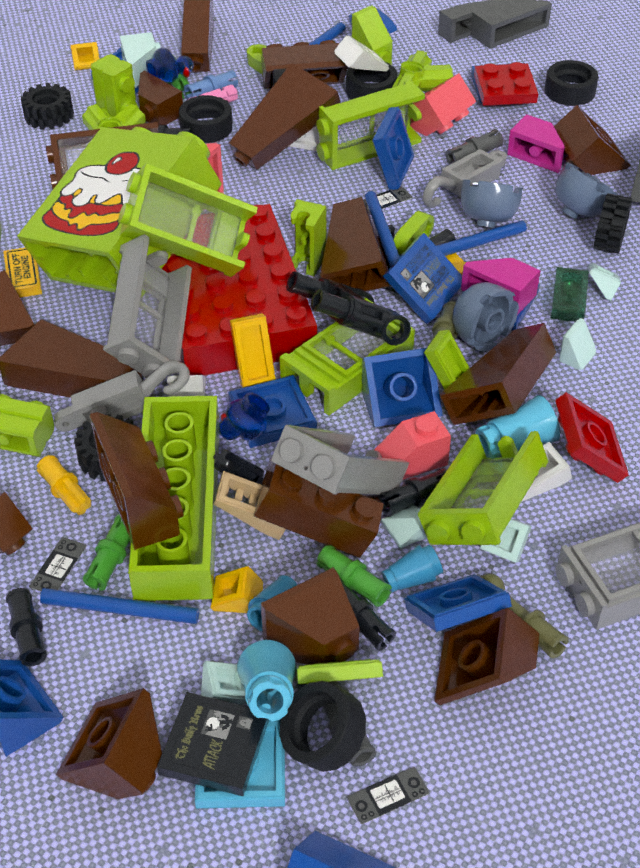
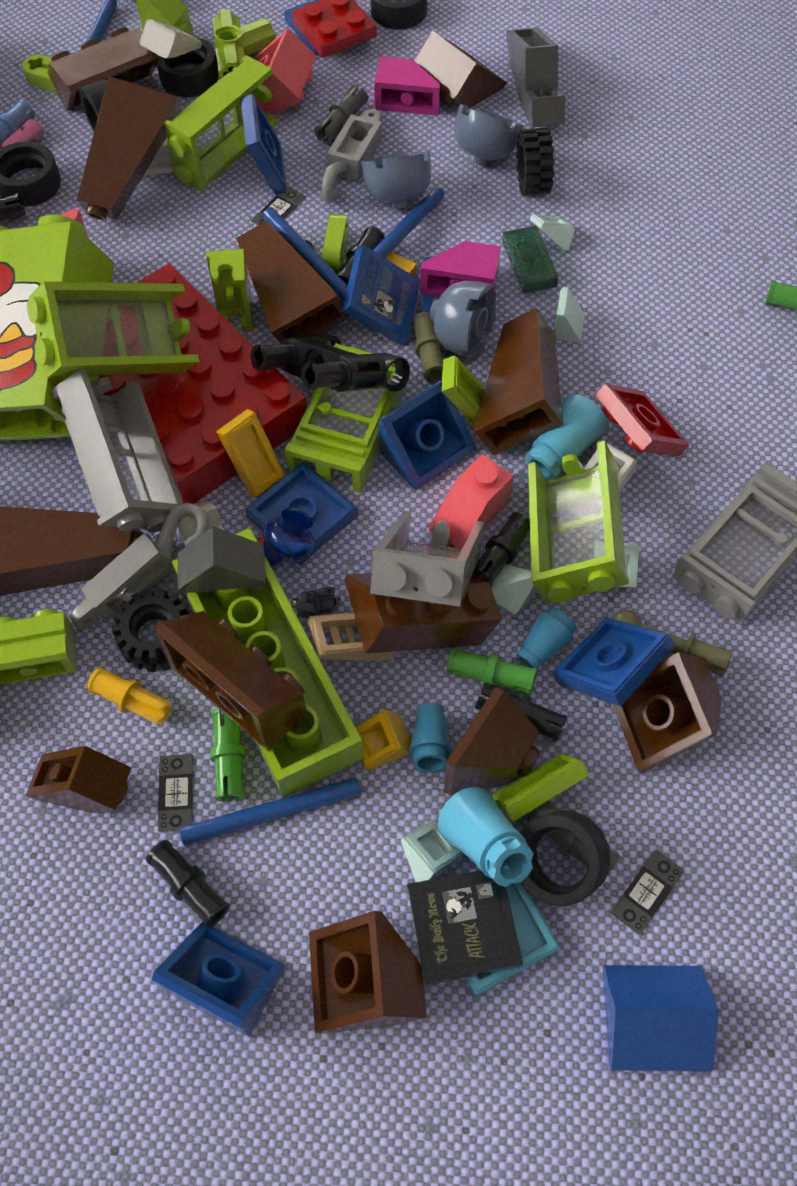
camera: 25 degrees left, 15 degrees up
(179, 408) = (220, 562): none -> dark grey slope

